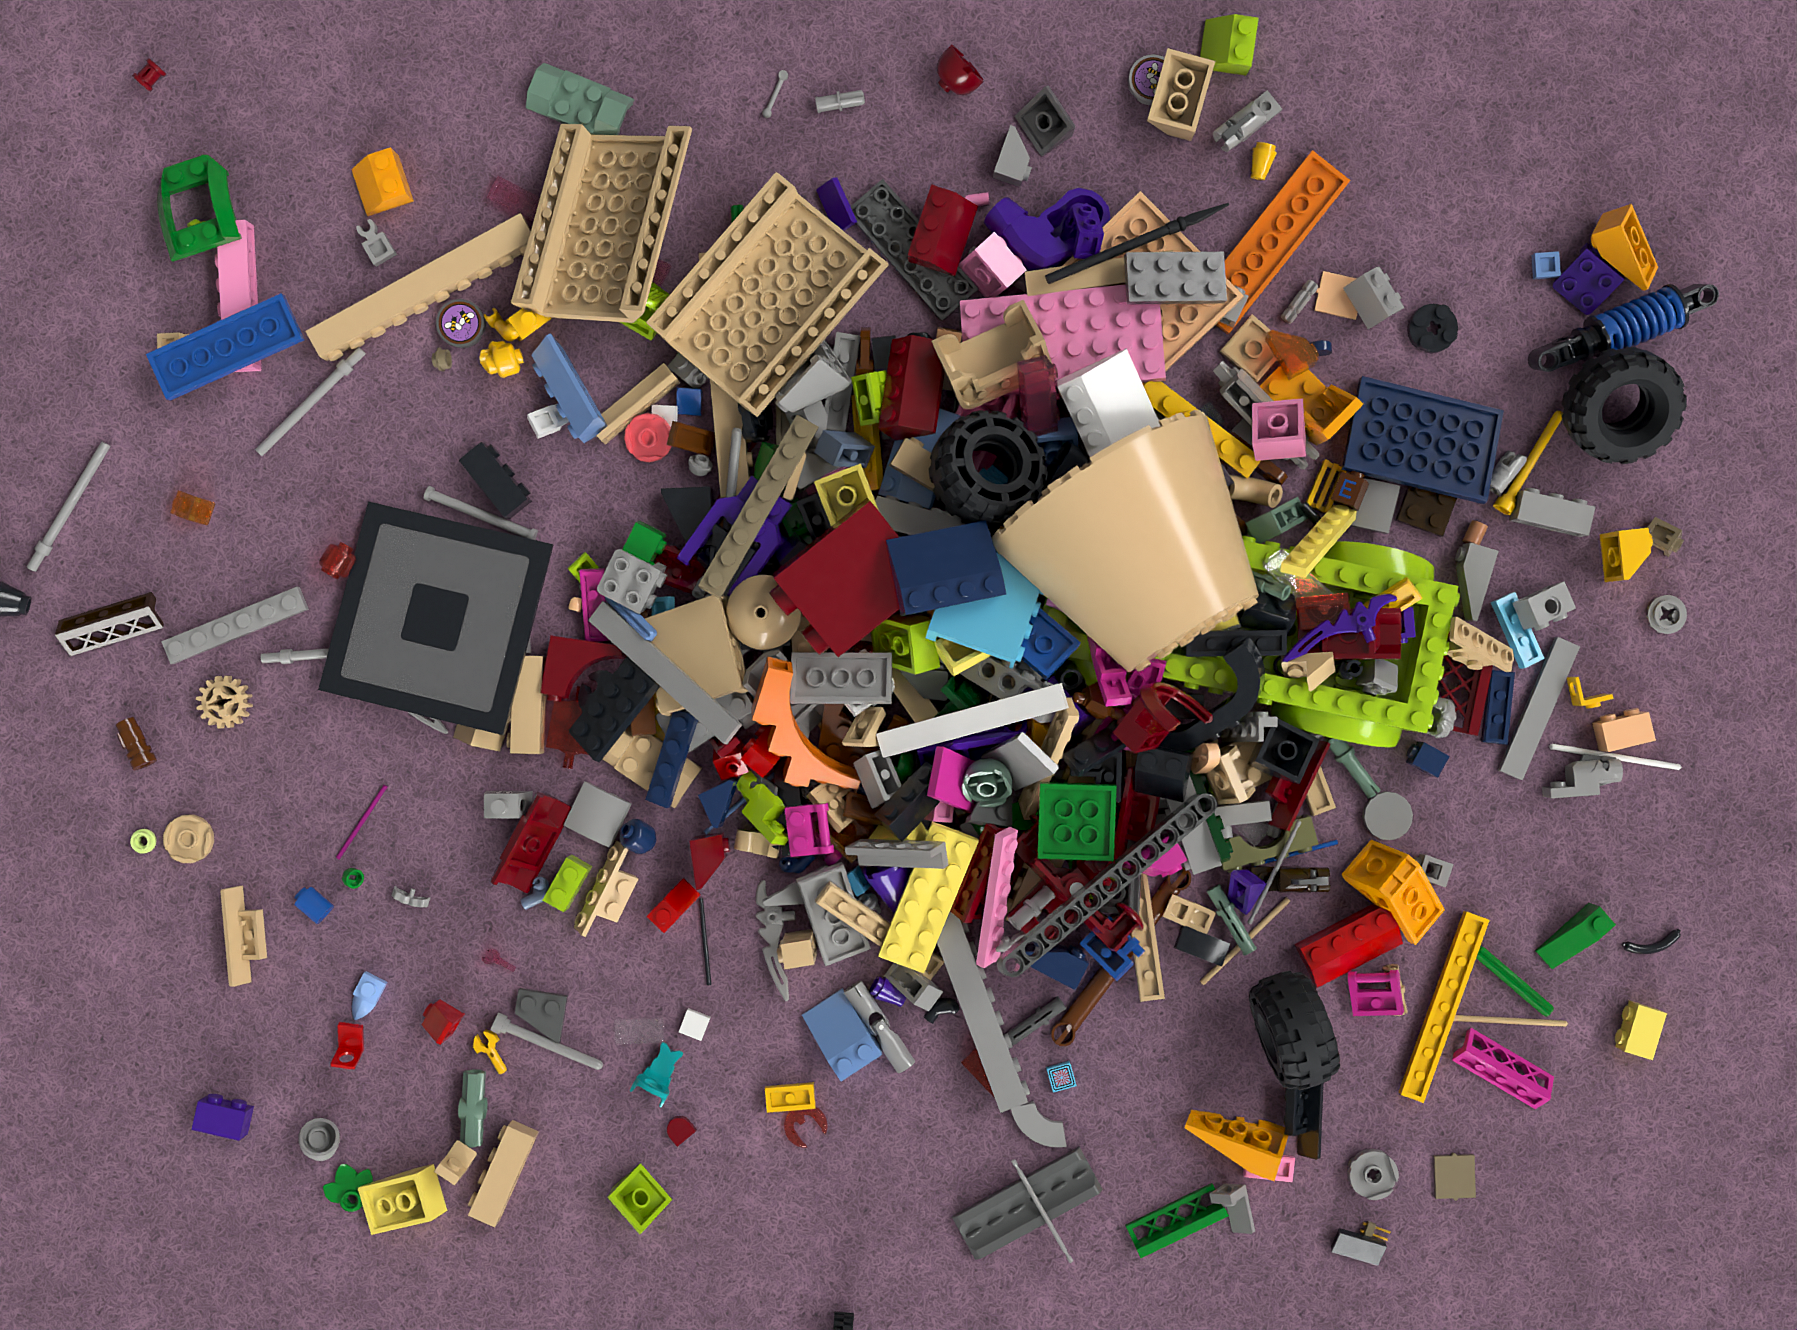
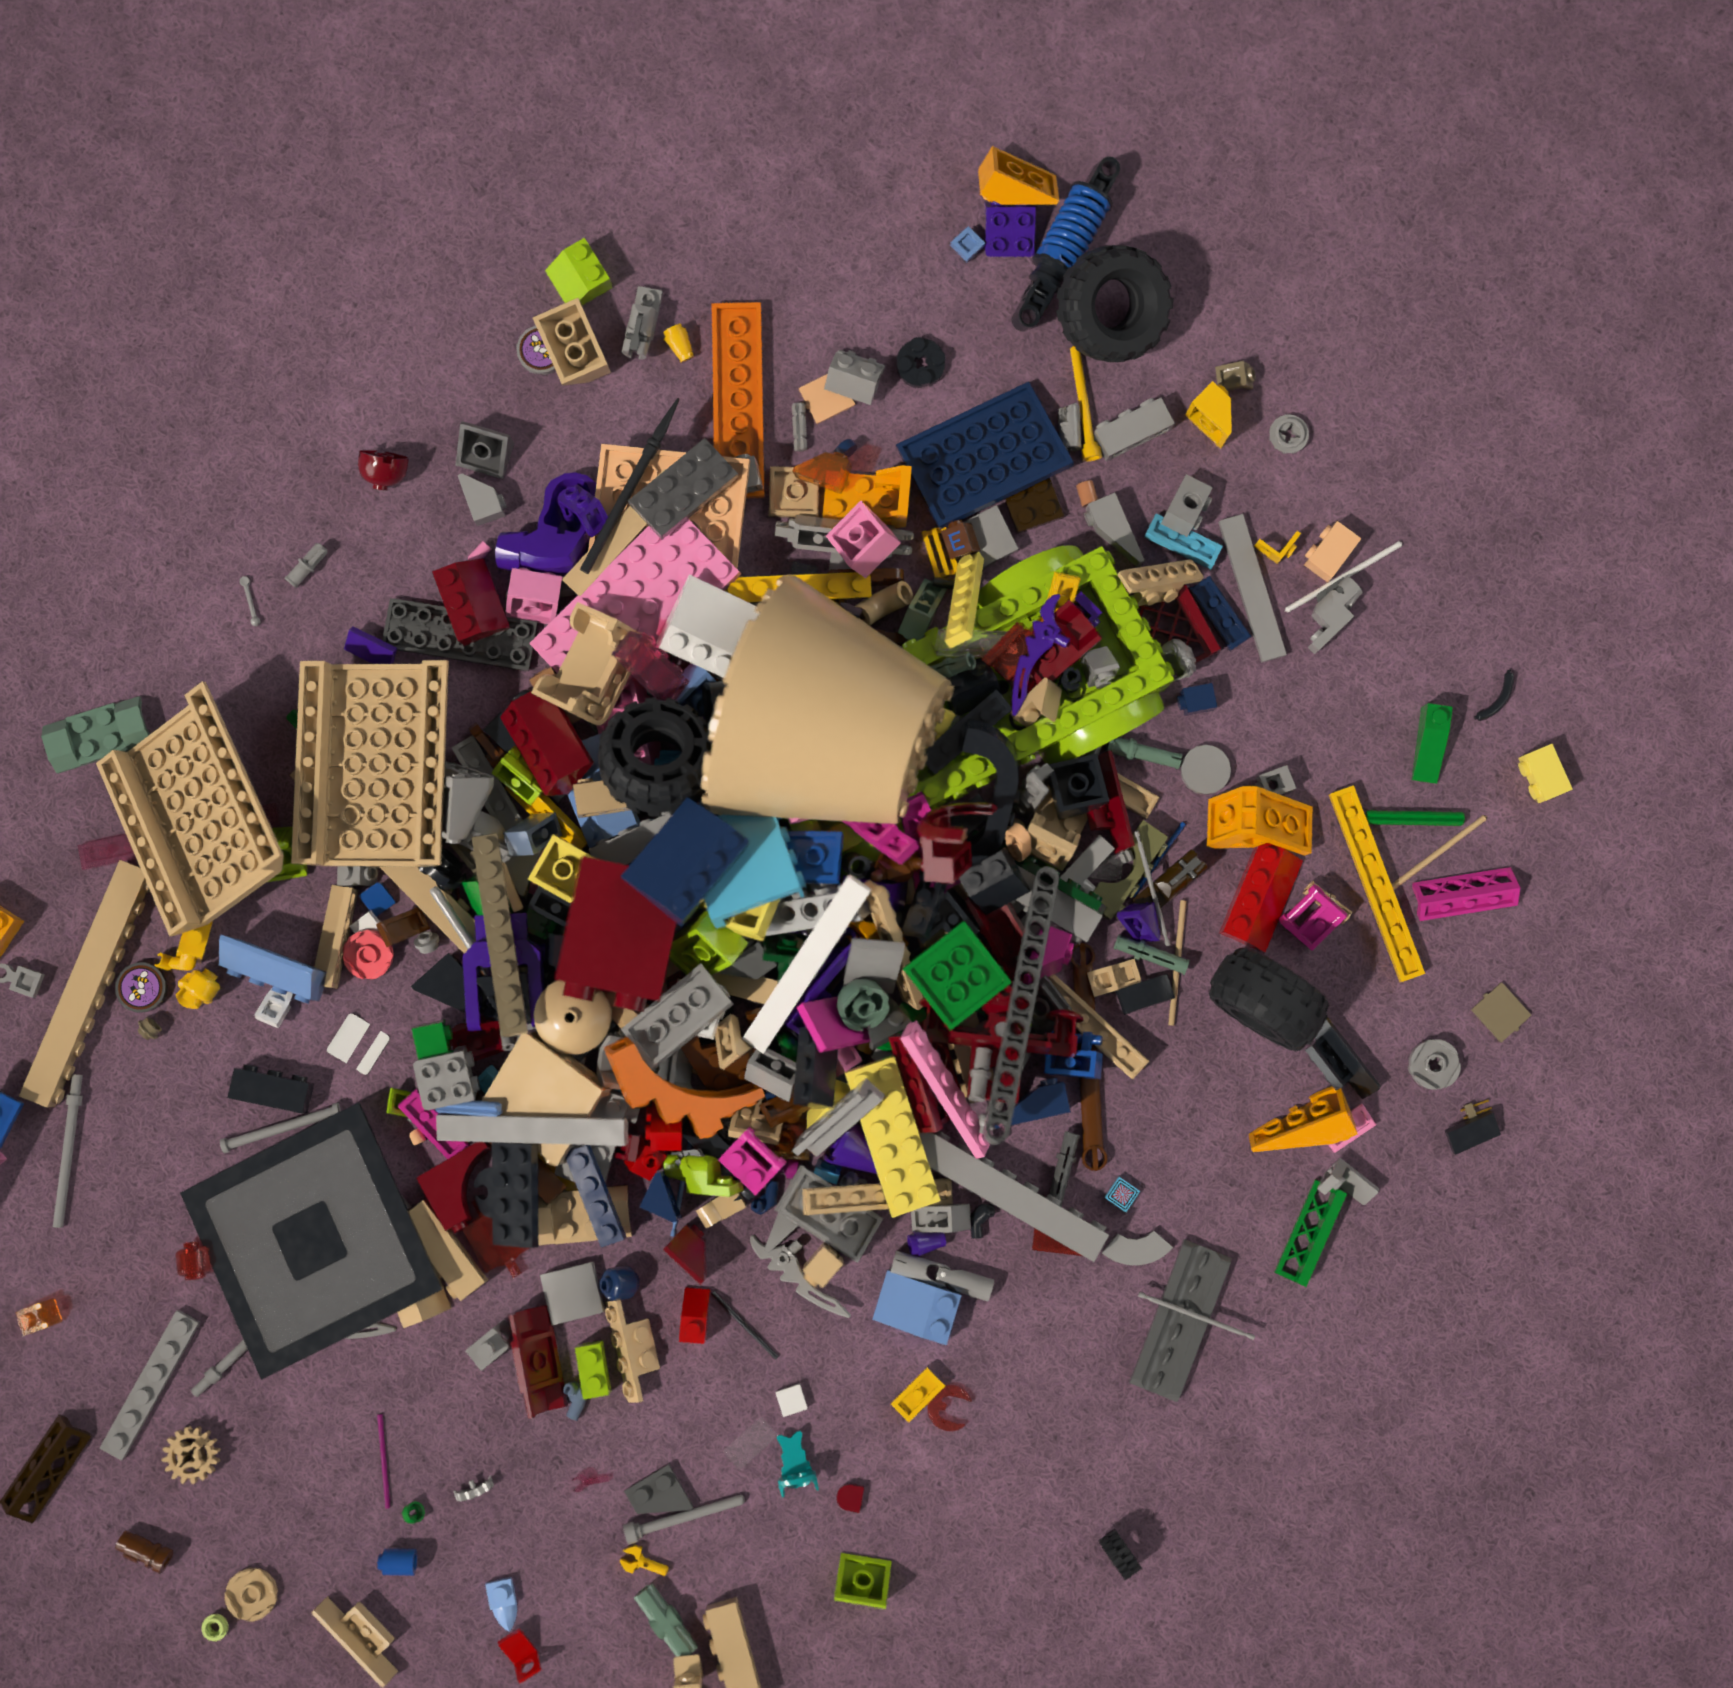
camera: 40 degrees left, 5 degrees down
(441, 1020) = (581, 1569): red slope -> none
(584, 488) = (348, 1038): none -> white sticker

